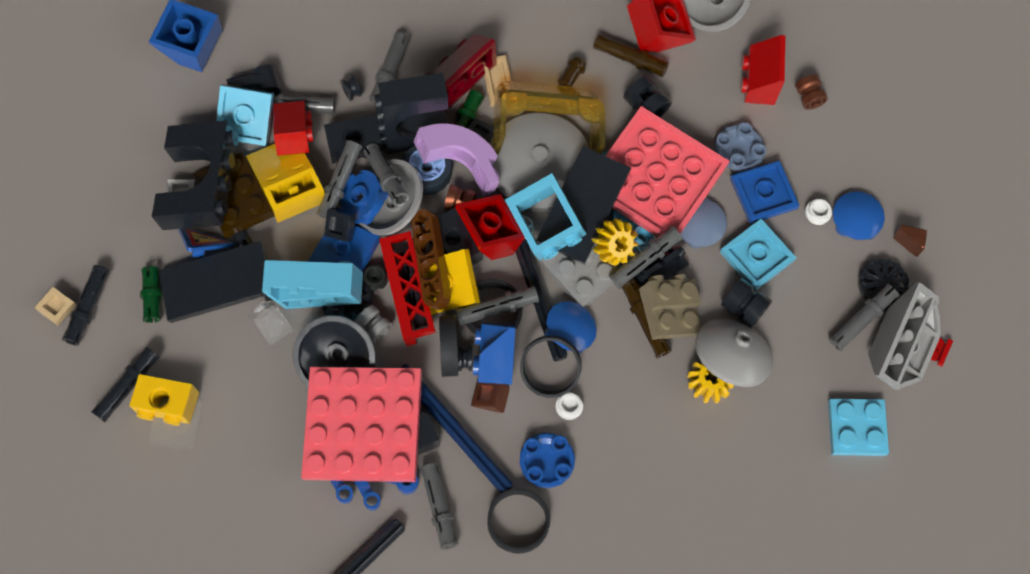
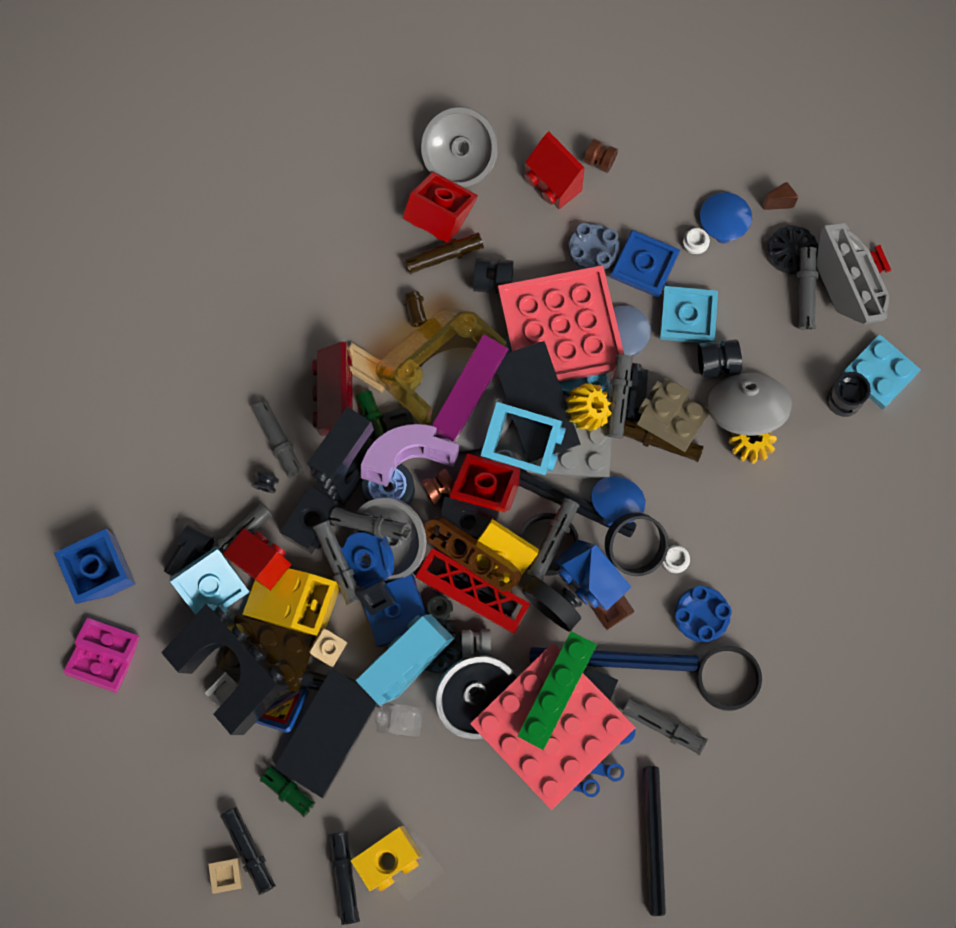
camera: 35 degrees left, 5 degrees up
(132, 95) = (102, 655): none -> dark pink slope
(273, 225) = (327, 647): none -> tan bracket
(387, 400) = (557, 690): none -> green plate
(547, 152) = (469, 388): none -> magenta tile
(814, 415) = (848, 394): none -> black wheel

